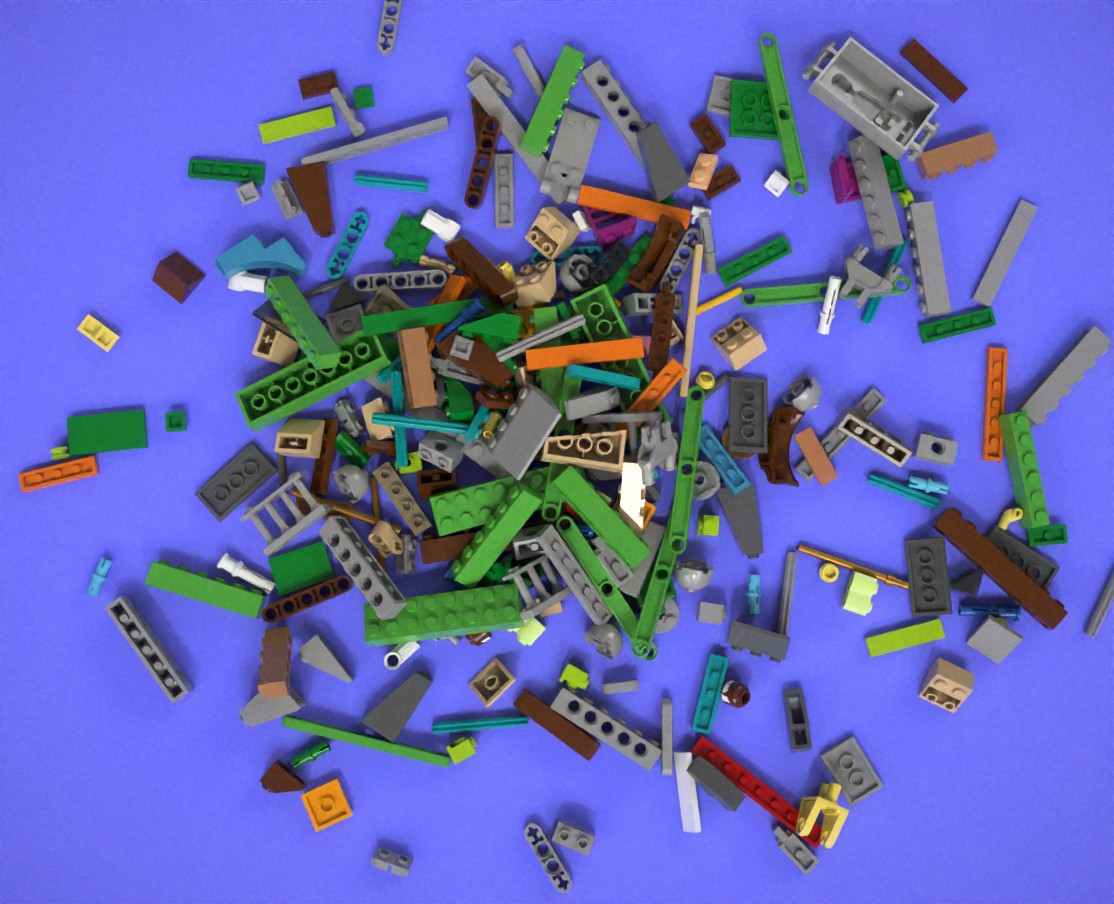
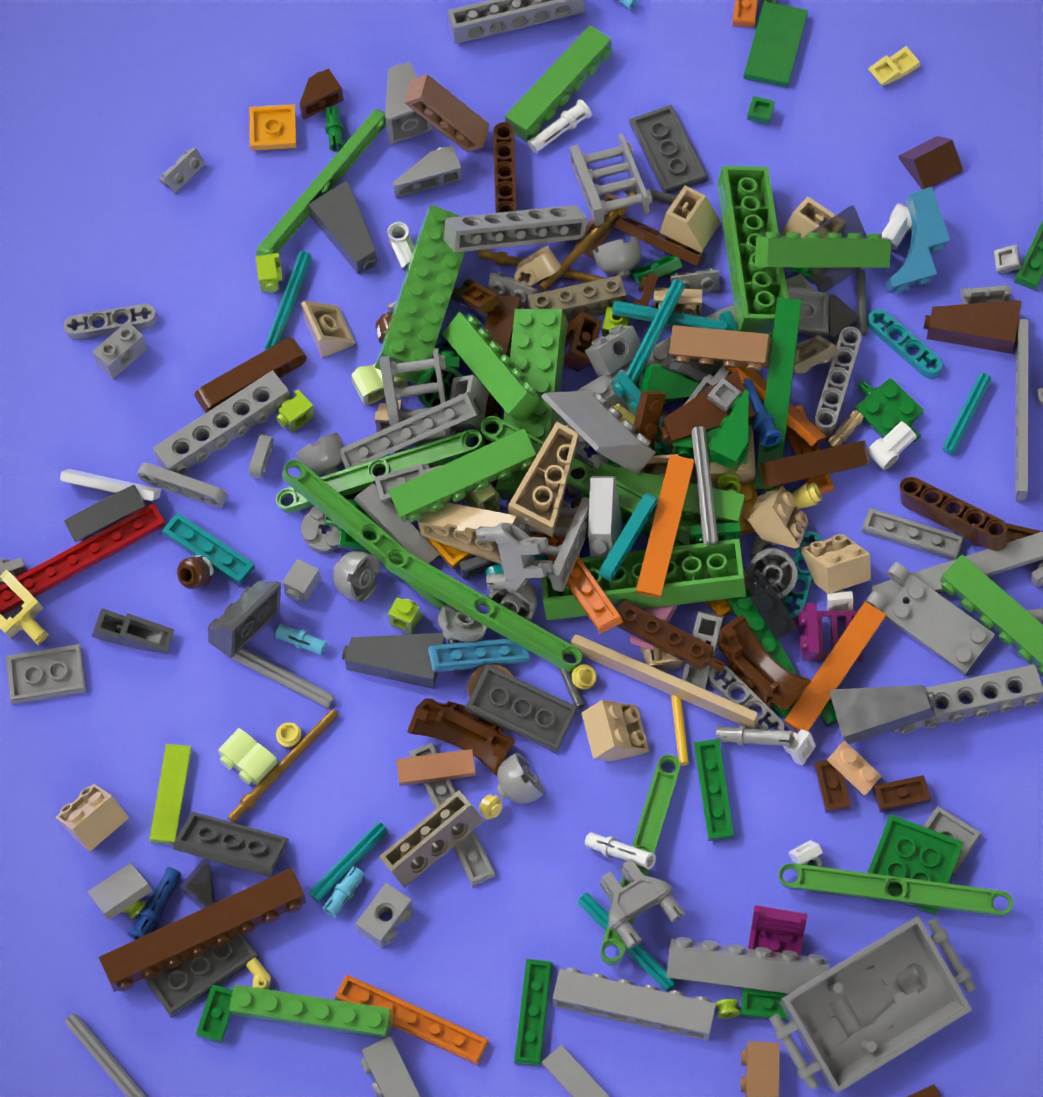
camera: 120 degrees right, 20 degrees down
(301, 568) = (542, 179): green tile -> none
(429, 575) = (476, 297): none -> reddish brown plate
(827, 408) = (490, 806): none -> light yellow plate

